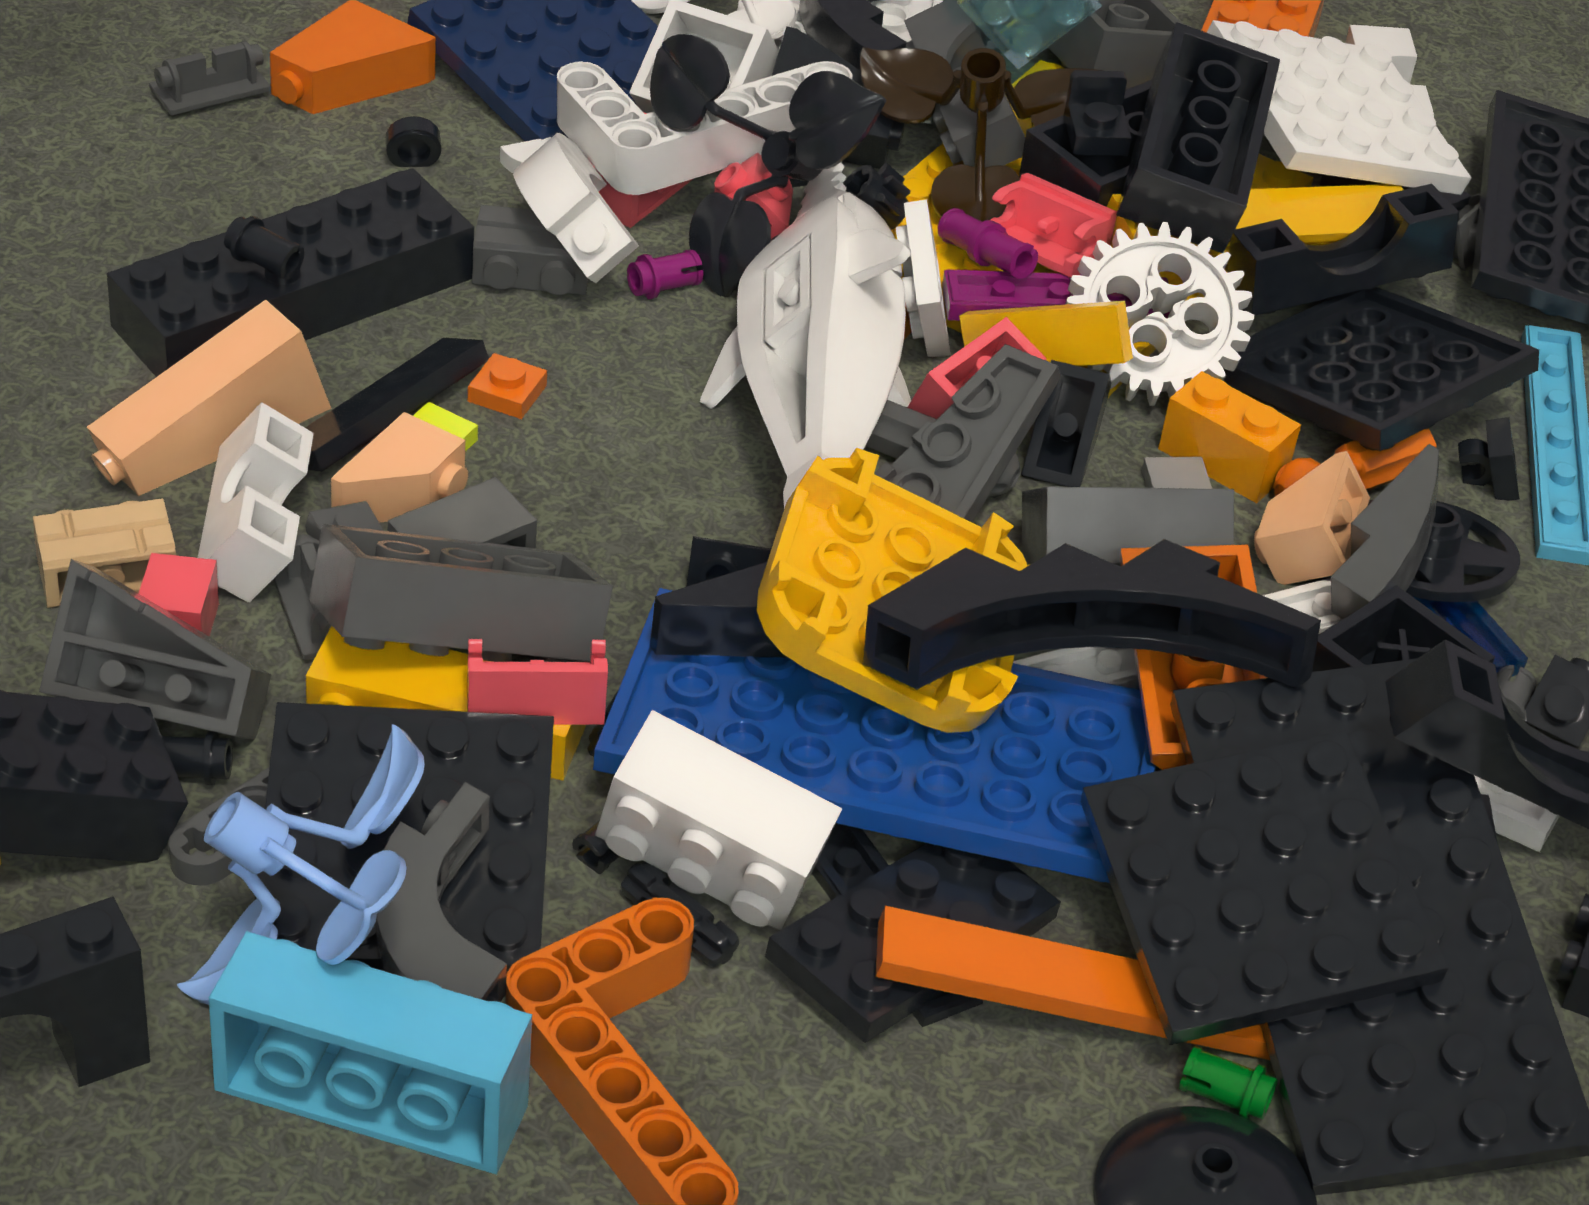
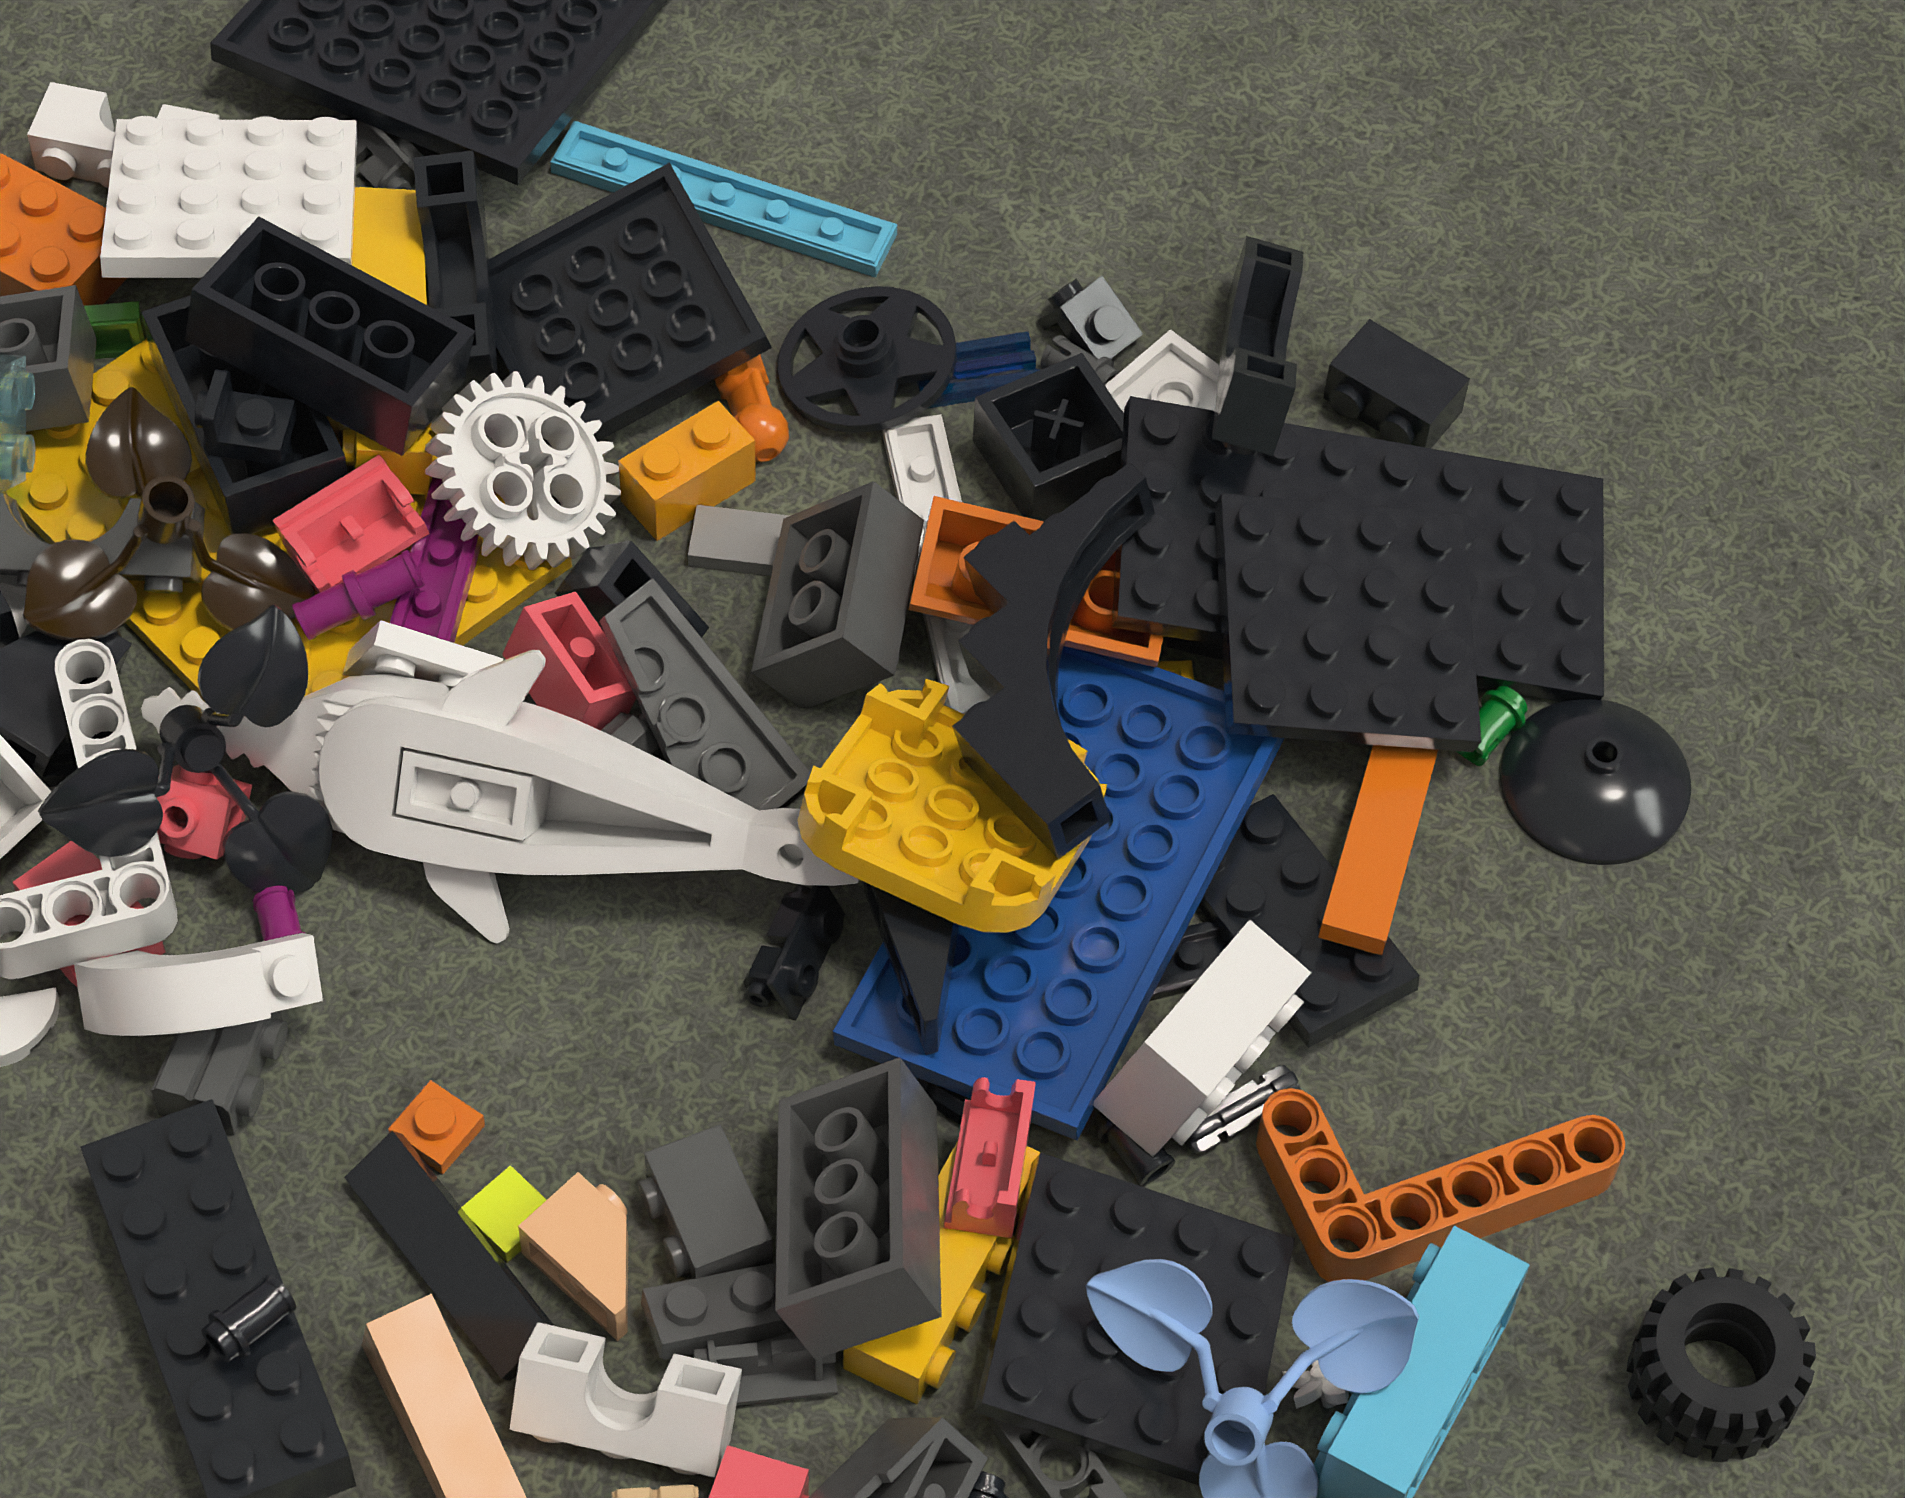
camera: 75 degrees left, 15 degrees up
(412, 929) = (1249, 1318): dark grey arch -> none
(1063, 333) = (533, 573): yellow tile -> none
(1309, 523) = (838, 438): light nougat slope -> none
(1389, 537) = (909, 380): dark grey slope -> none
(1494, 459) = (757, 258): black tile -> none

